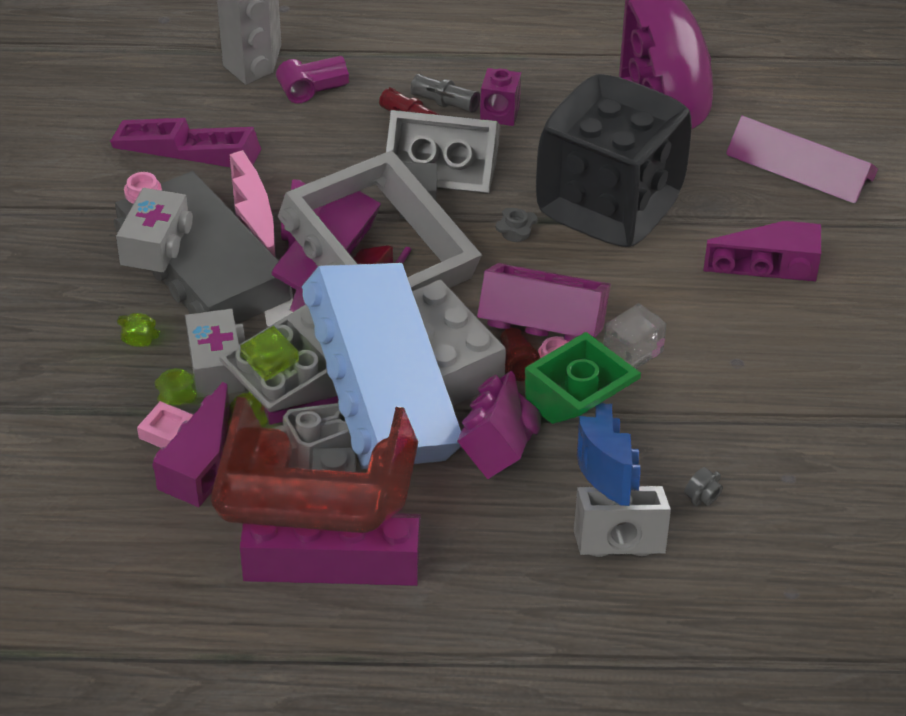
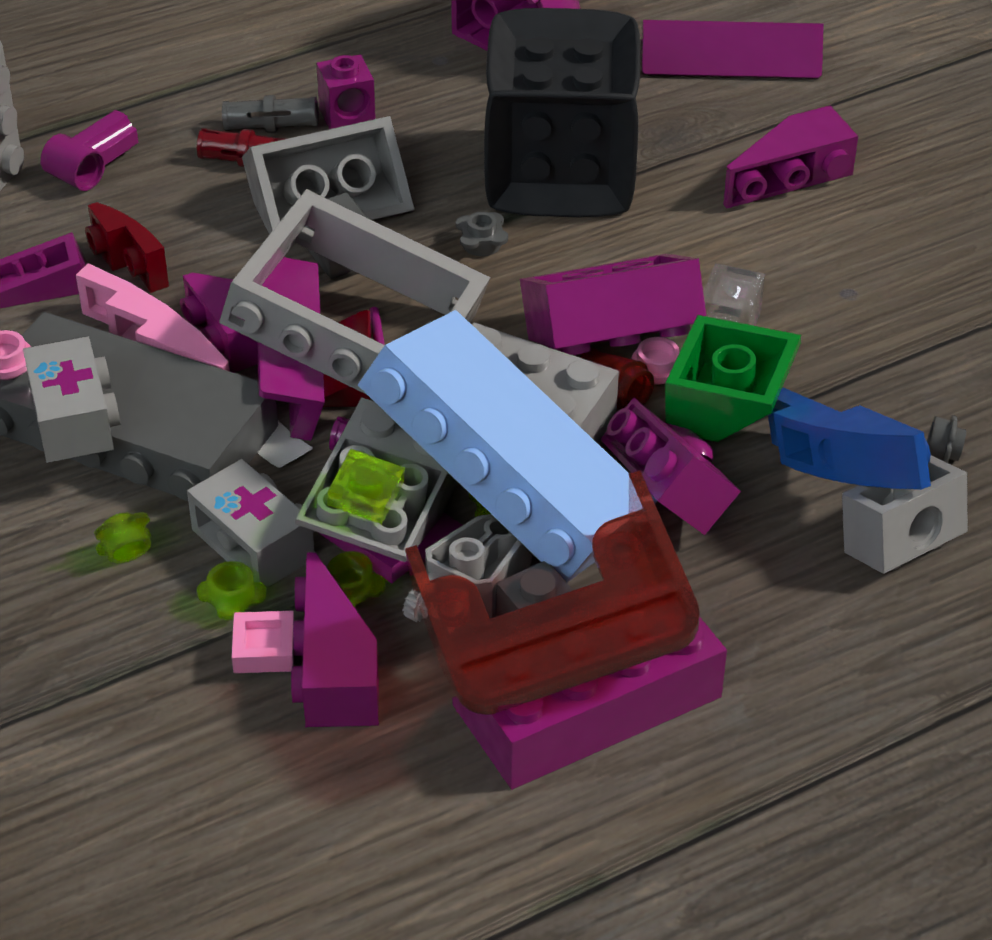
camera: 30 degrees left, 0 degrees up
(282, 145) = (127, 244): none -> dark red slope

